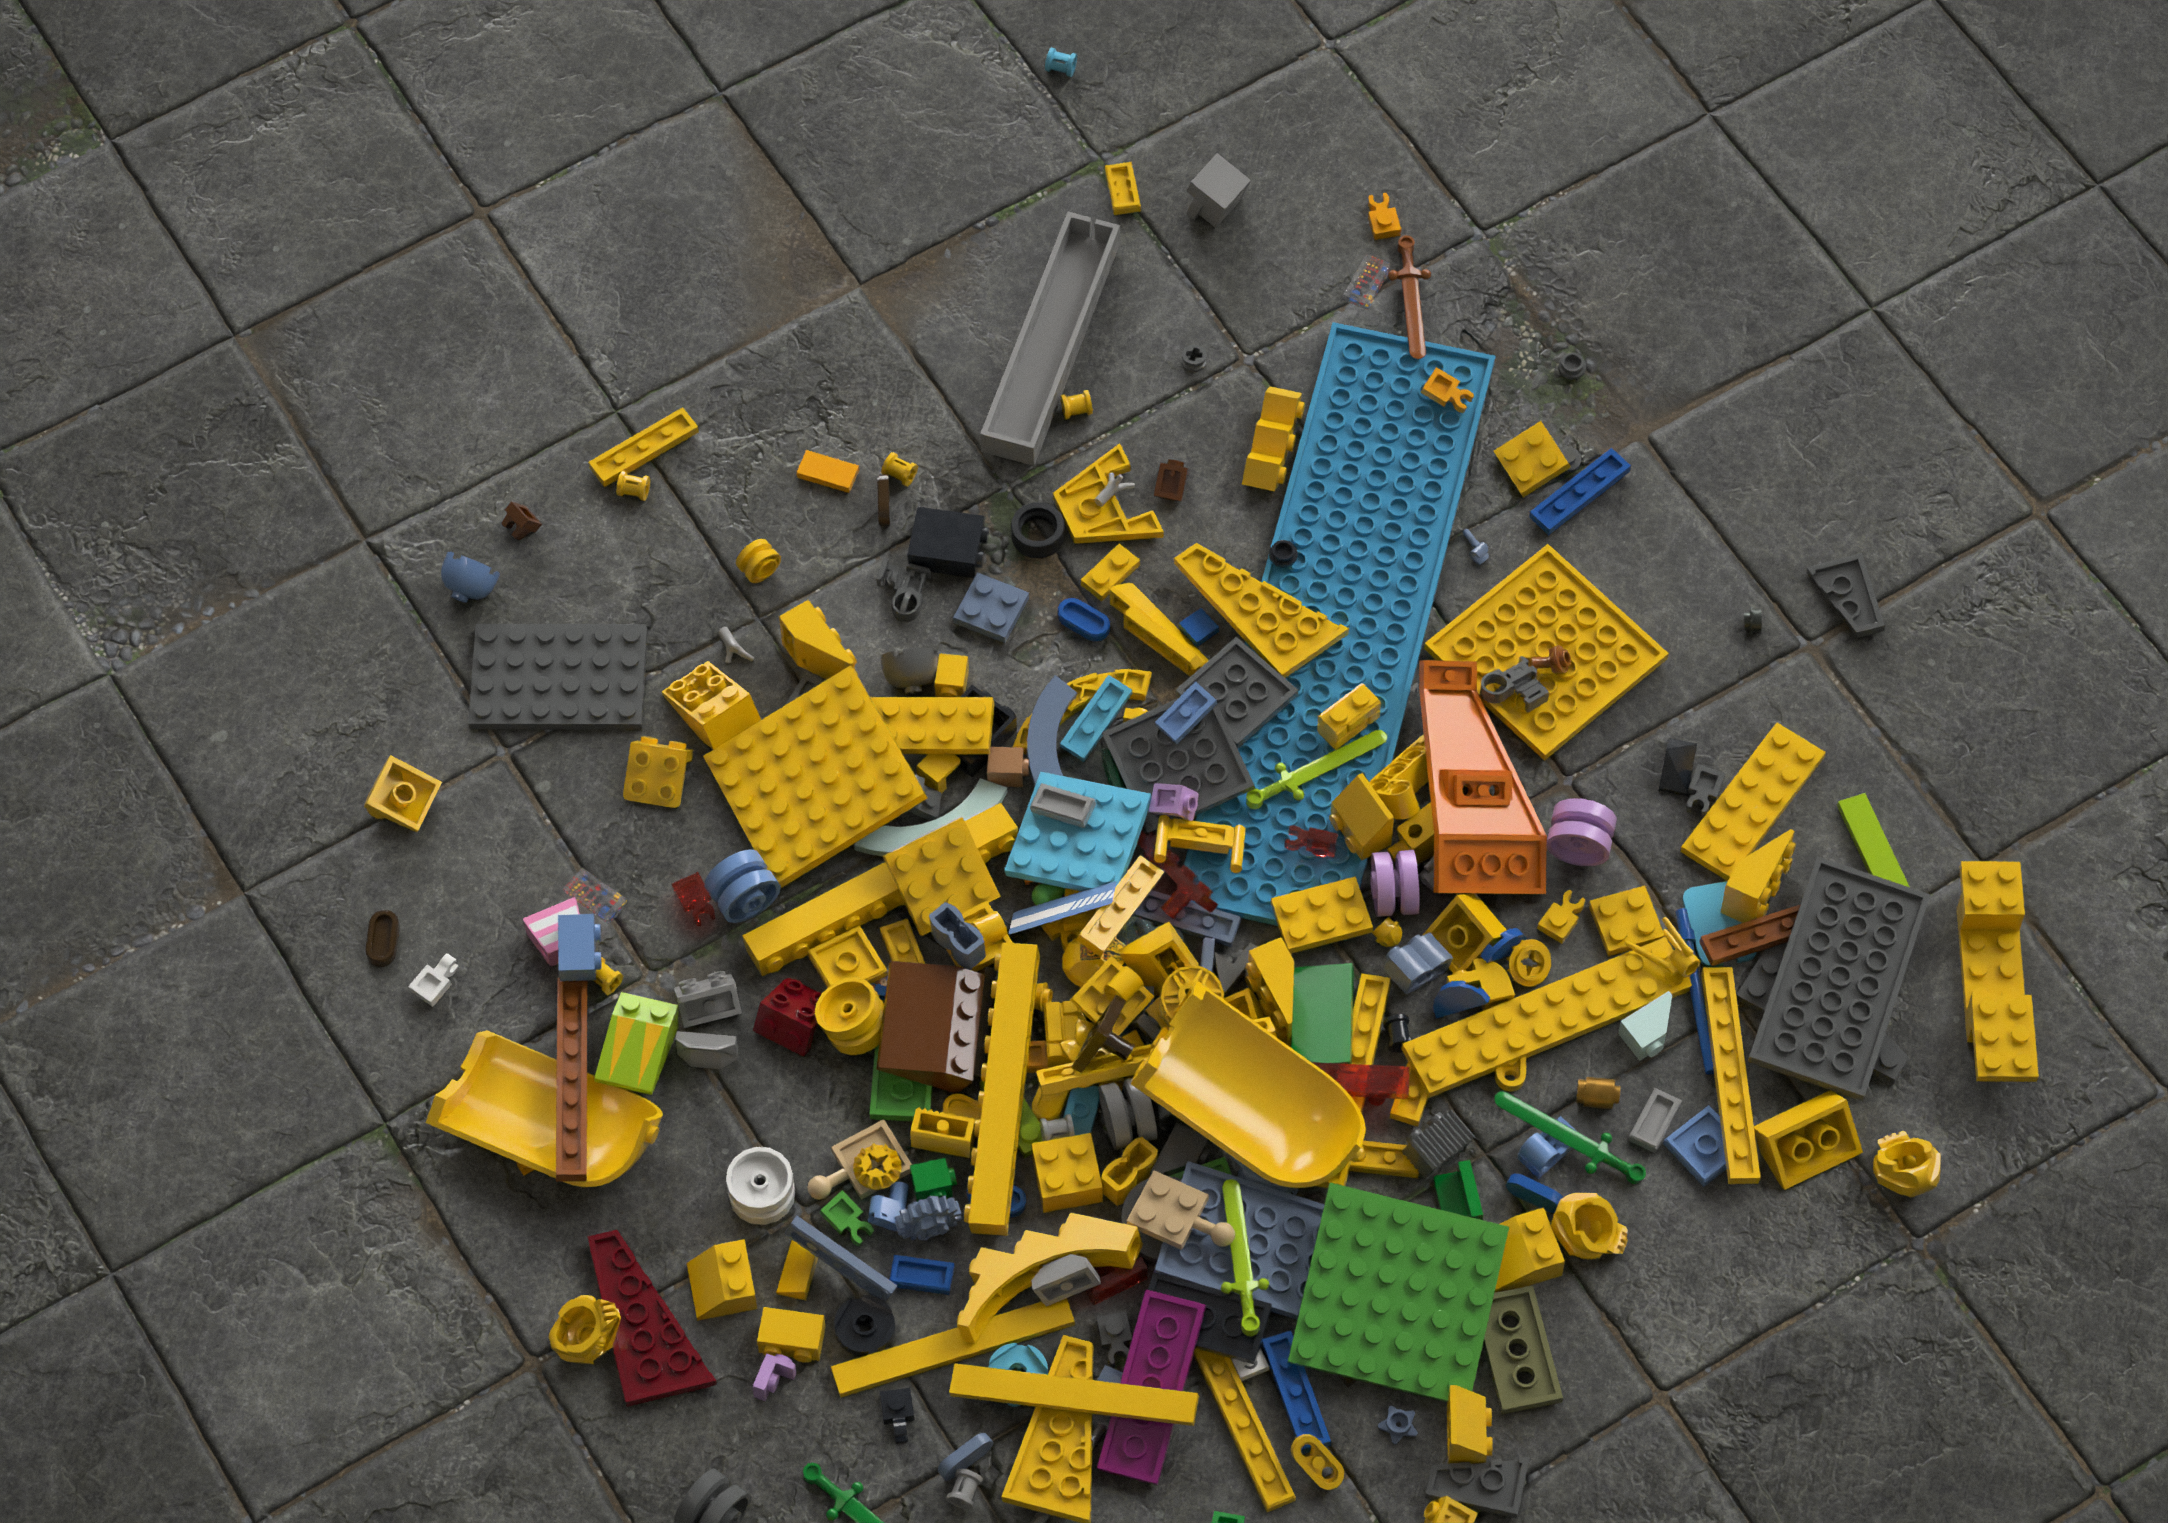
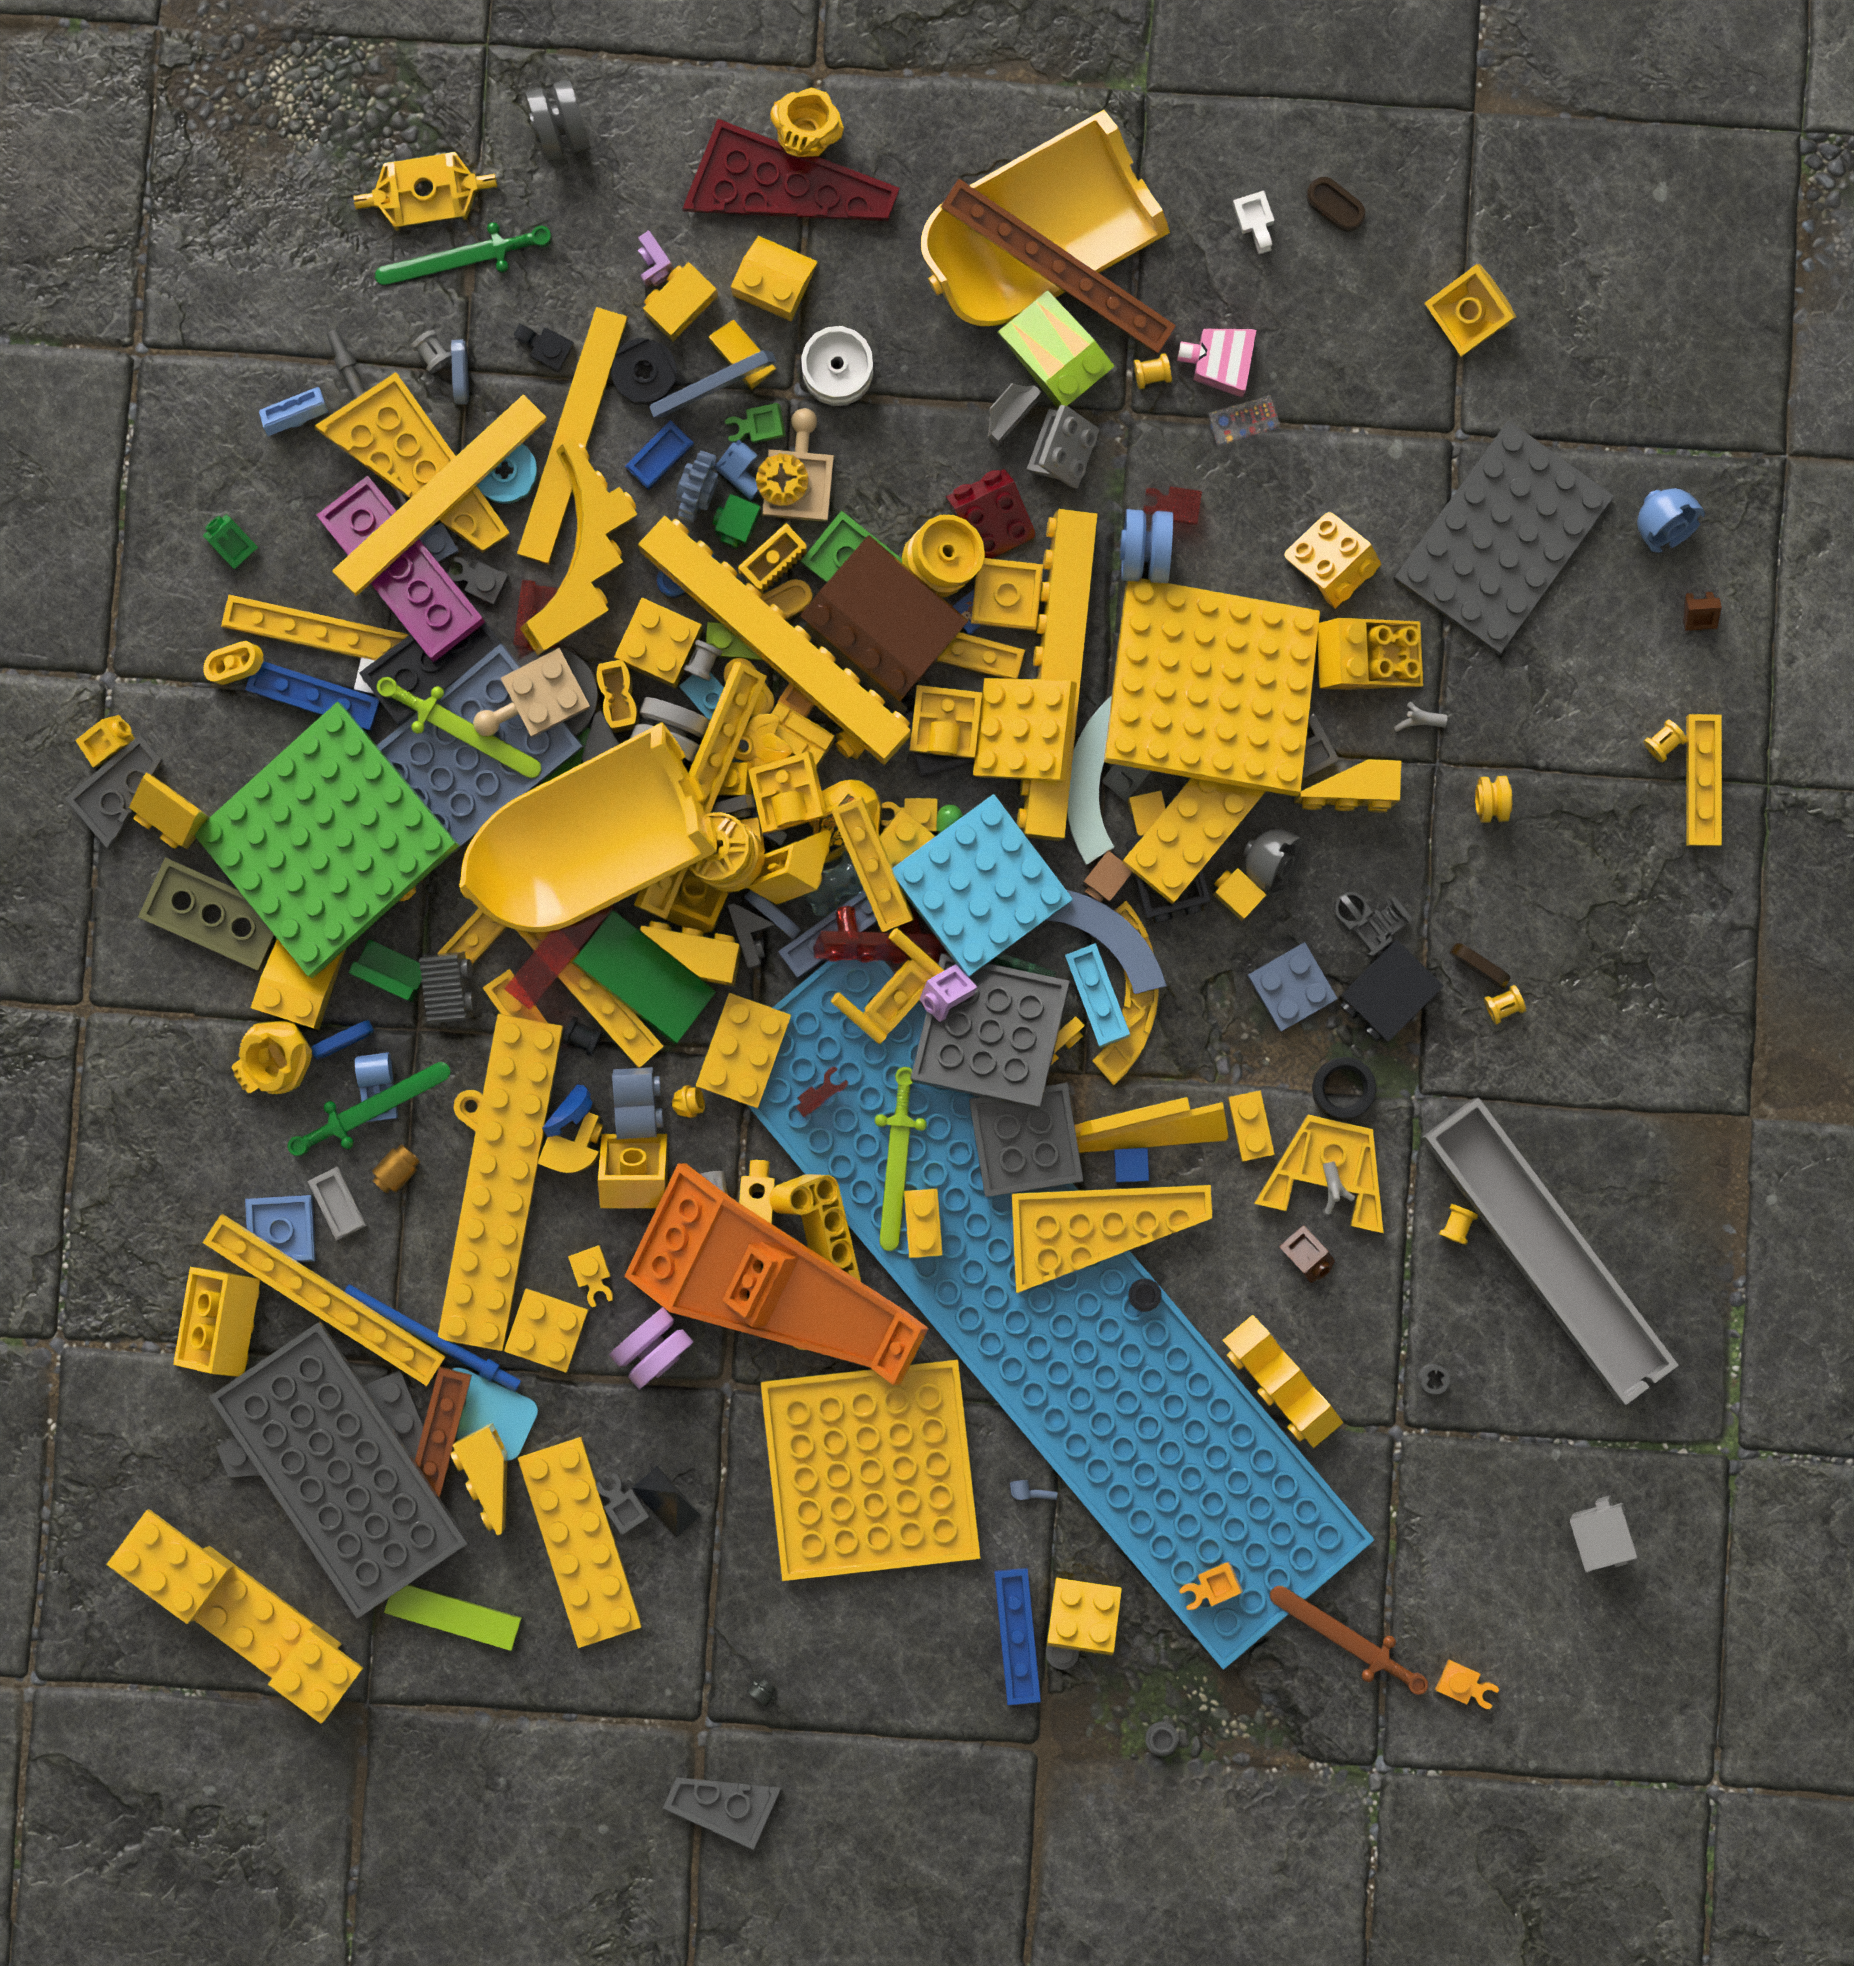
camera: 120 degrees right, 25 degrees up
(578, 947) = (1184, 353): medium blue brick -> none
(827, 471) = (1553, 937): light orange tile -> none
(958, 936) = (955, 694): sand blue brick -> none
(1062, 805) = (1014, 887): light grey tile -> none
(1062, 907) = (914, 816): medium blue sticker -> none
(1064, 1279) = (552, 562): light grey slope -> none
(1083, 619) = (1217, 1064): blue tile -> none
(1102, 1036) = (743, 745): dark brown tile -> none
(1122, 188) = (1680, 1451): yellow plate -> none
(1186, 712) = (1022, 1063): medium blue plate -> none
(1362, 818) = (805, 1151): yellow slope -> none
(1367, 281) = (1402, 1613): clear tile -> none
(1391, 883) = (723, 1137): lavender wheel -> none
(1395, 1416) = (218, 758): sand blue plate -> none
(1503, 947) = (591, 1189): blue tile -> none
(1522, 679) = (847, 1414): dark grey piece -> none
(1534, 974) = (554, 1205): yellow gear -> none
(1558, 660) = (846, 1467): dark orange plate -> none
(1647, 1027) = (423, 1264): light aqua slope -> none
(1681, 958) = (459, 1341): yellow plant -> none
(1901, 1171) = (124, 1386): yellow helmet -> none

